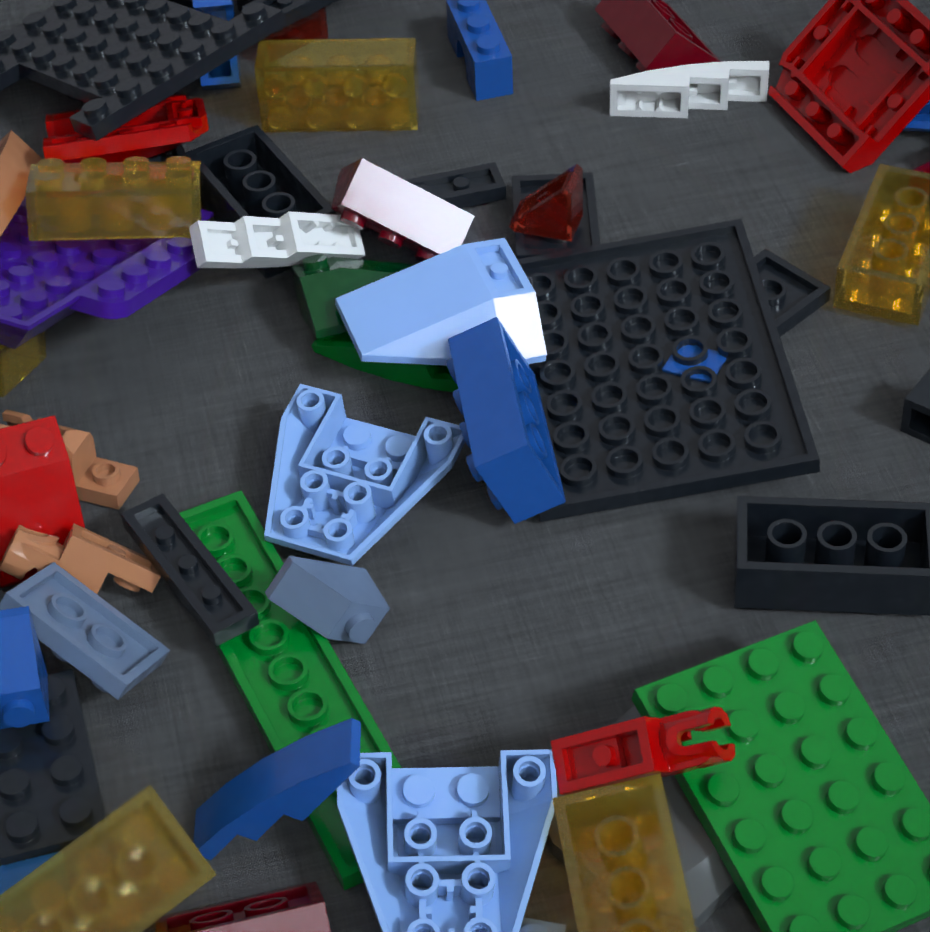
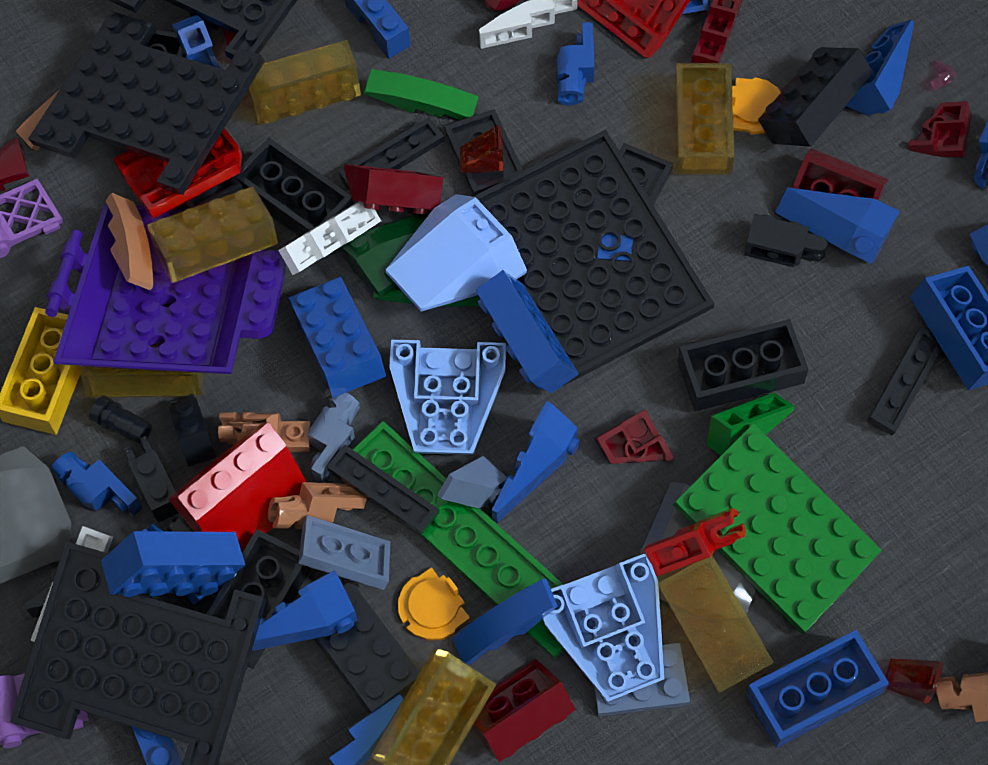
camera: 20 degrees left, 20 degrees up
(167, 472) = (331, 432): none -> sand blue plate
(186, 756) = (431, 606): none -> light orange piece
(225, 367) = (337, 337): none -> blue brick
(459, 591) = (548, 447): none -> blue wedge
(489, 133) = (419, 93): none -> green slope
(616, 619) = (633, 441): none -> dark red slope
(734, 153) = (576, 67): none -> blue plate
(849, 633) = (731, 424): none -> green slope

